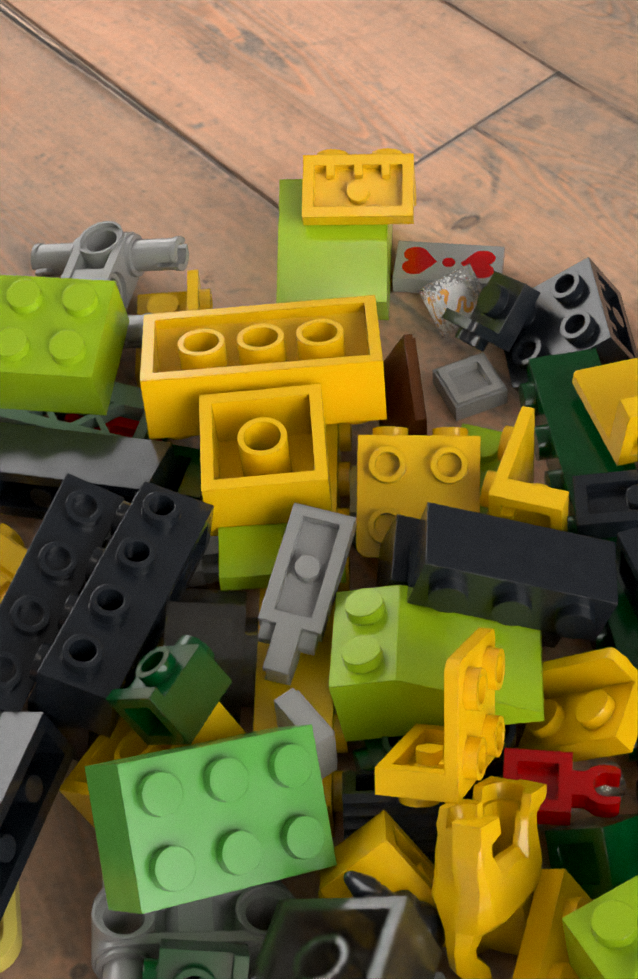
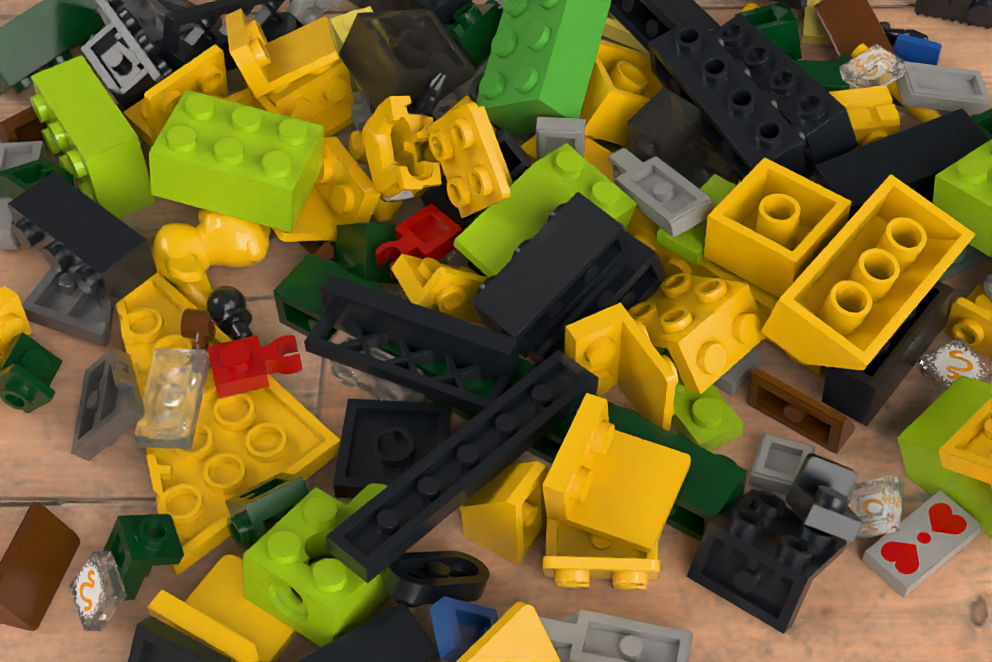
camera: 130 degrees right, 0 degrees up
(172, 692) = (628, 65): dark green brick -> none

